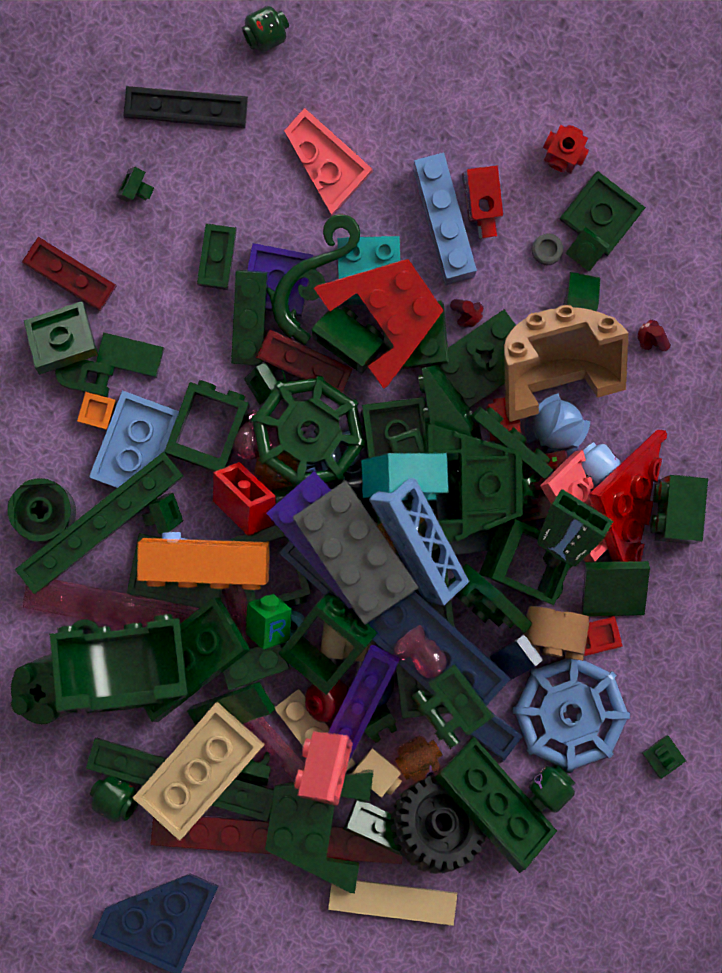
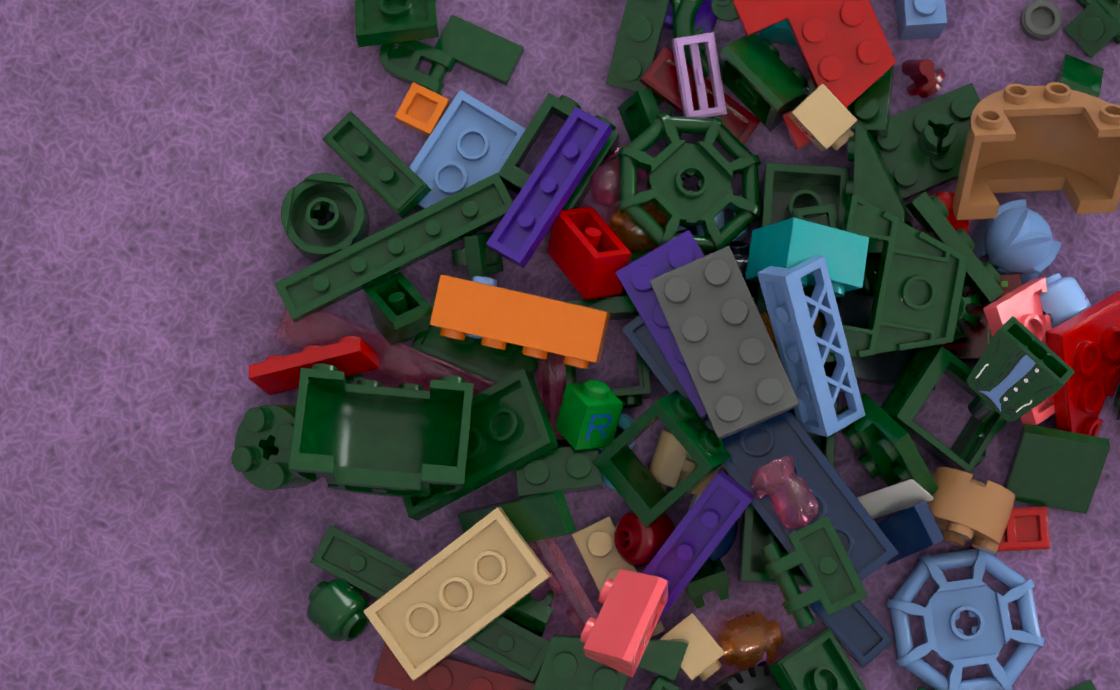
camera: 25 degrees right, 5 degrees down
(38, 632) = (282, 372): none -> red tile
(71, 460) = (376, 164): none -> dark green tile
(110, 568) = (398, 308): none -> dark green slope
(205, 456) = (549, 187): none -> dark purple plate
(311, 343) = (683, 79): none -> lavender tile
(398, 365) = (823, 119): none -> tan brick
(499, 636) = (894, 498): none -> white sticker

